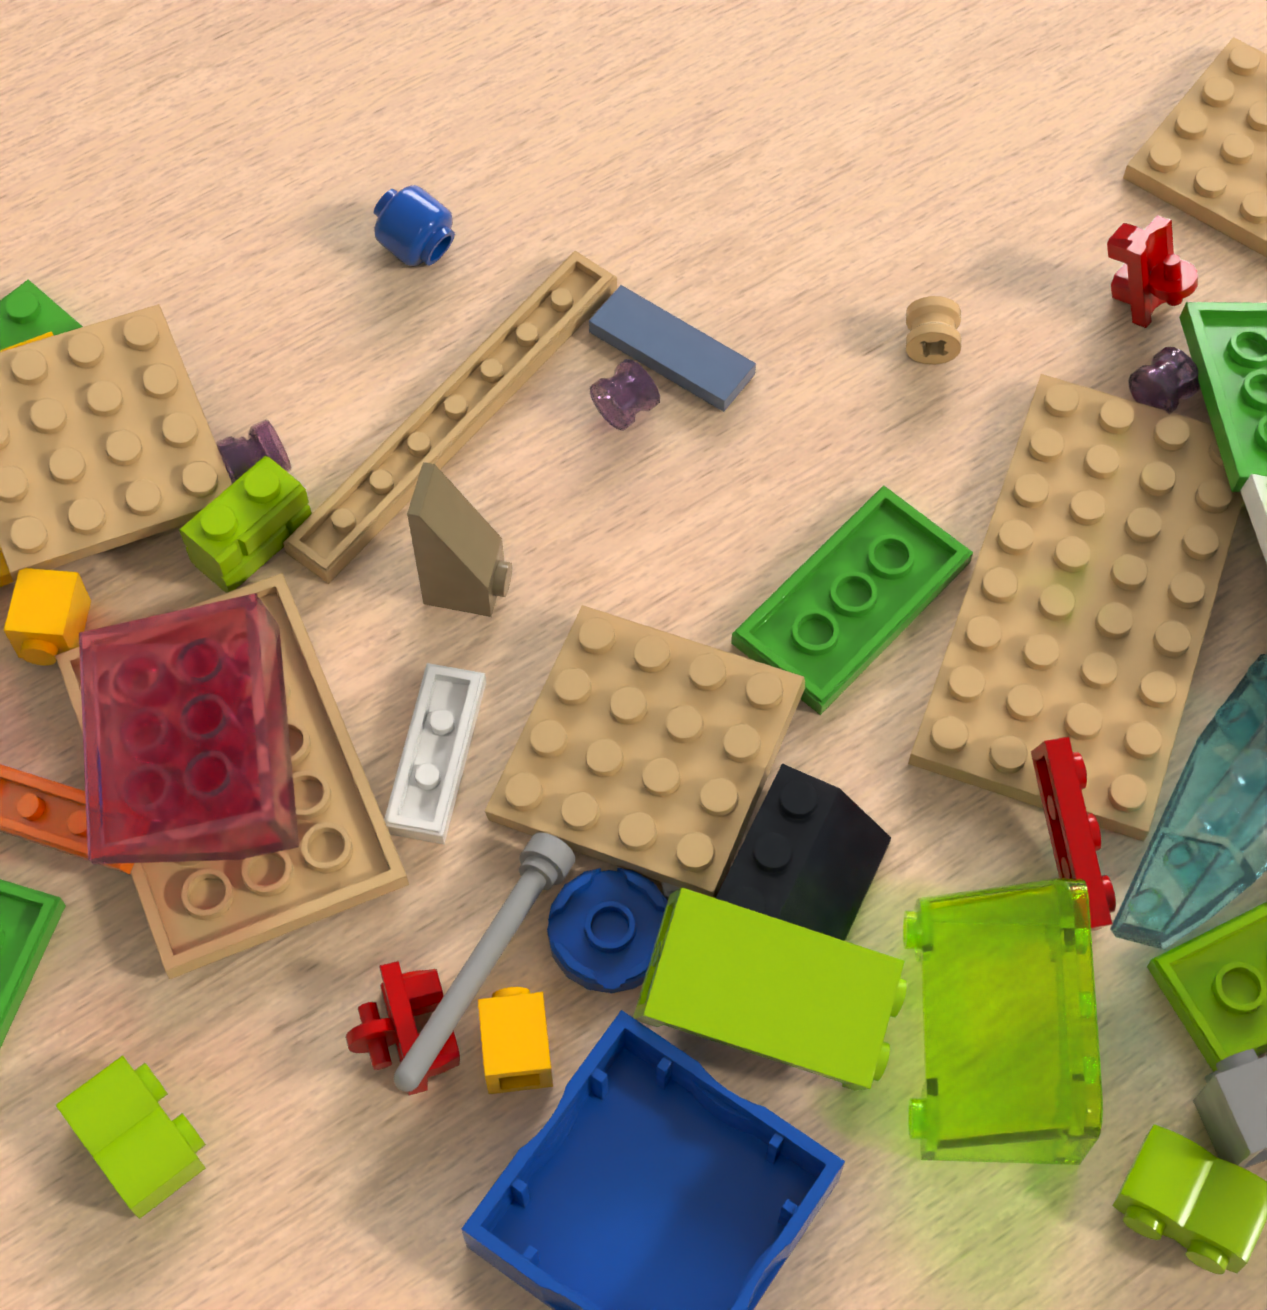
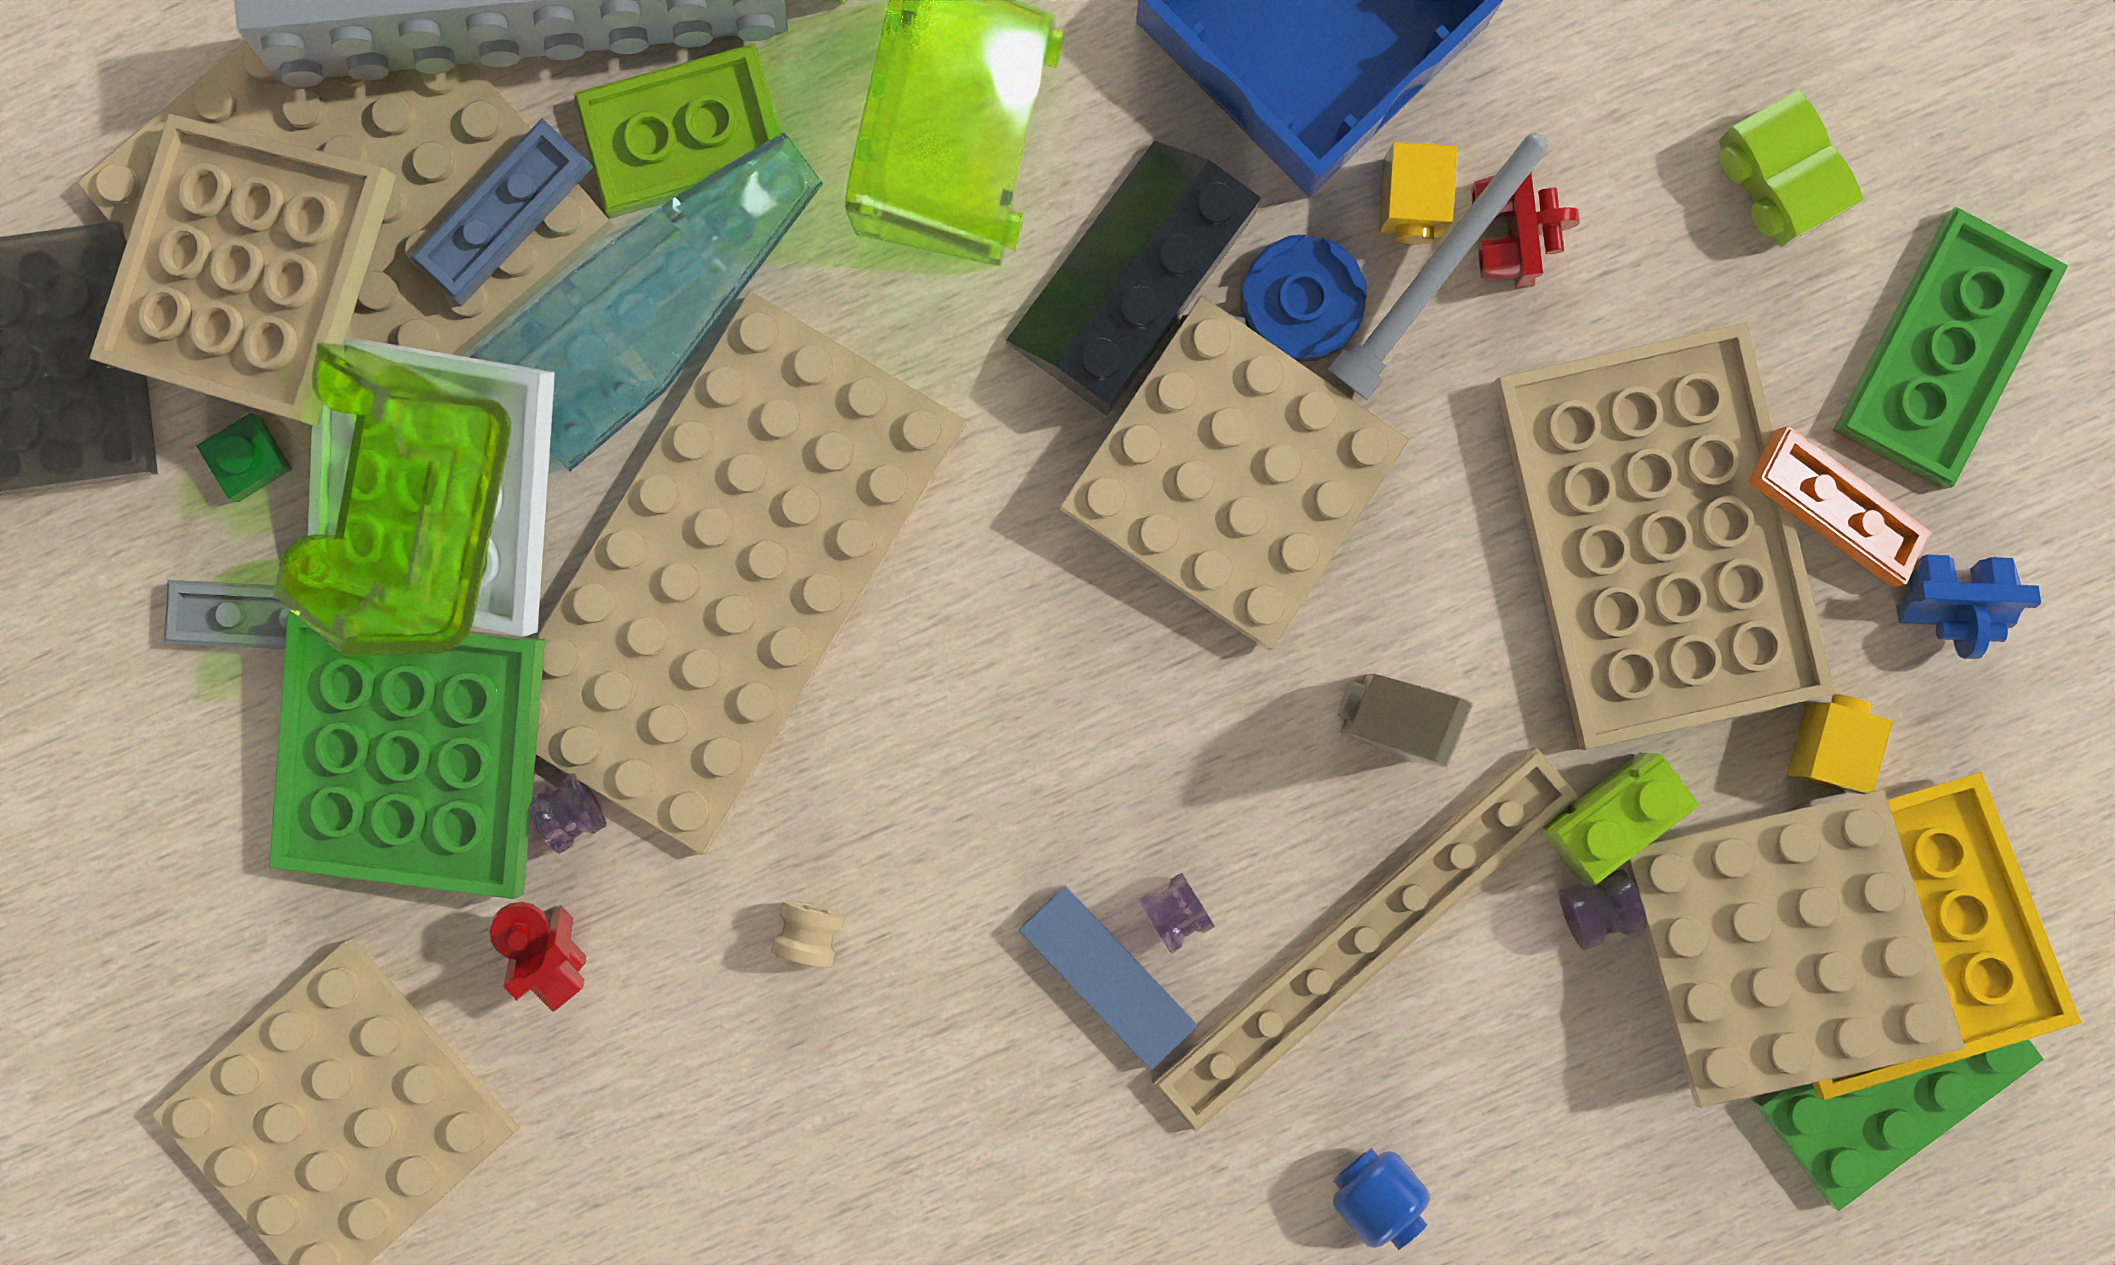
camera: 170 degrees left, 25 degrees up
(187, 736) = (1713, 543): clear pink slope -> none
(435, 753) = (1447, 521): white tile -> none
(772, 989) = (1174, 169): lime panel -> none
(853, 597) = (978, 618): bright green tile -> none
(1072, 831) = (830, 286): red plate -> none

